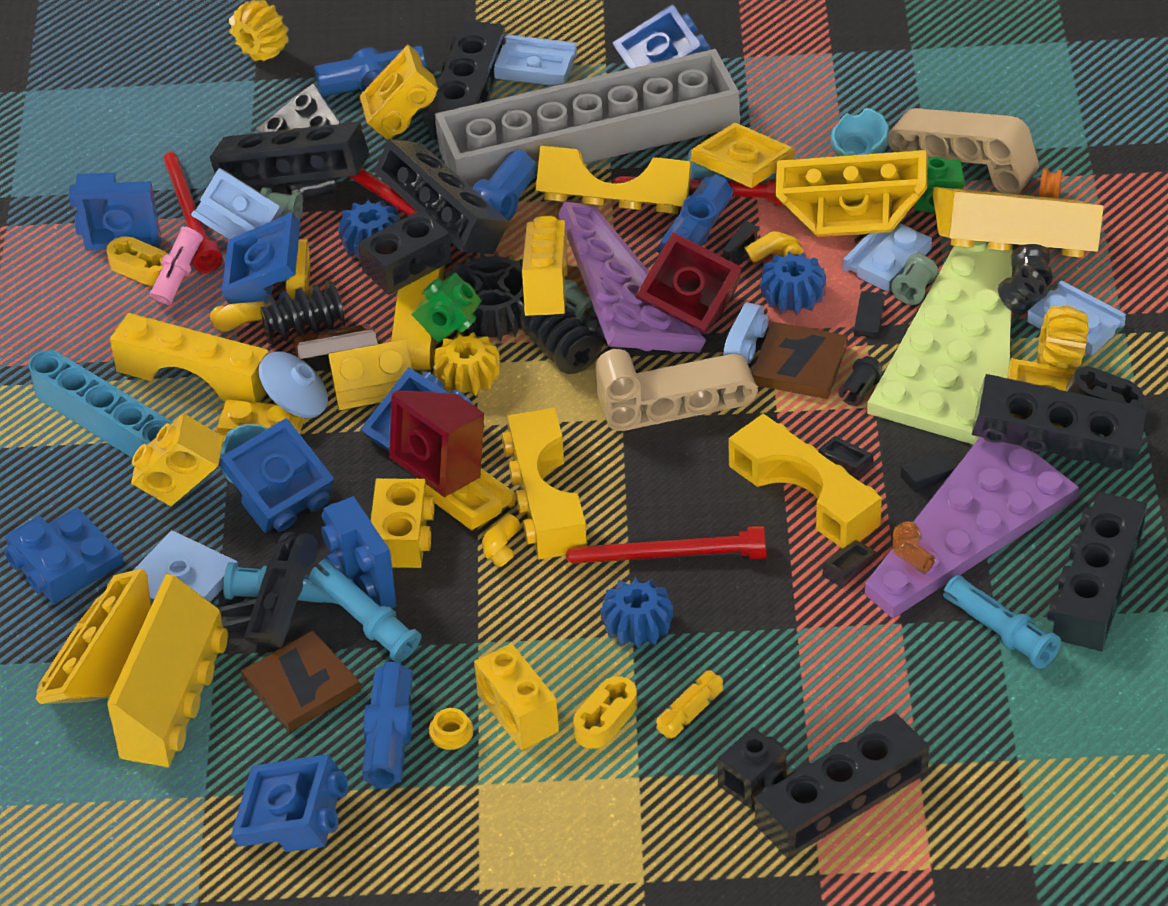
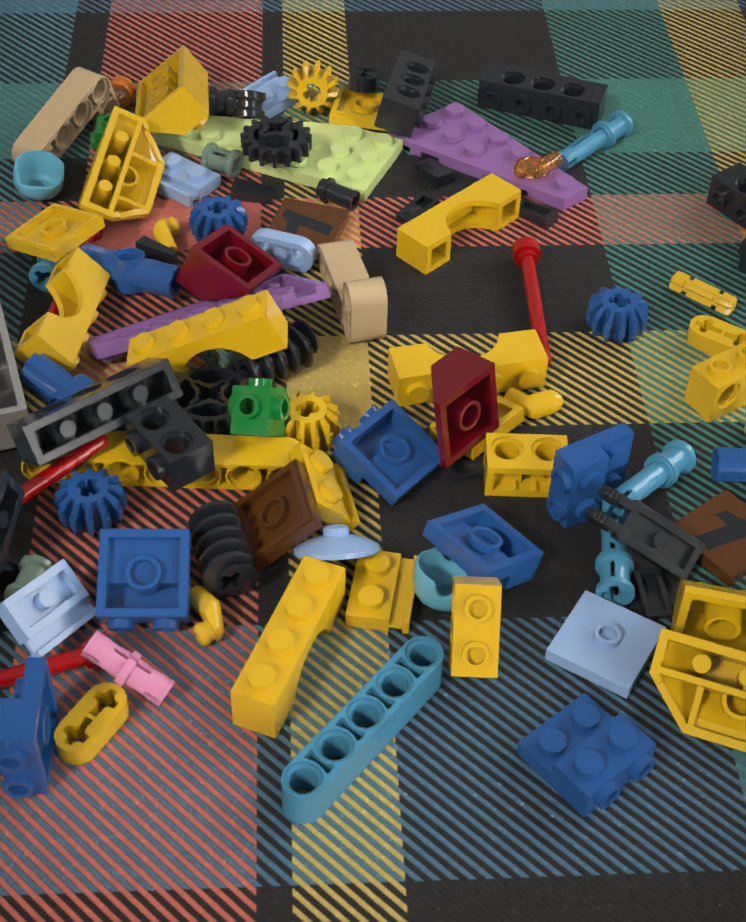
camera: 95 degrees left, 0 degrees up
(923, 306) = (276, 141): none -> black gear

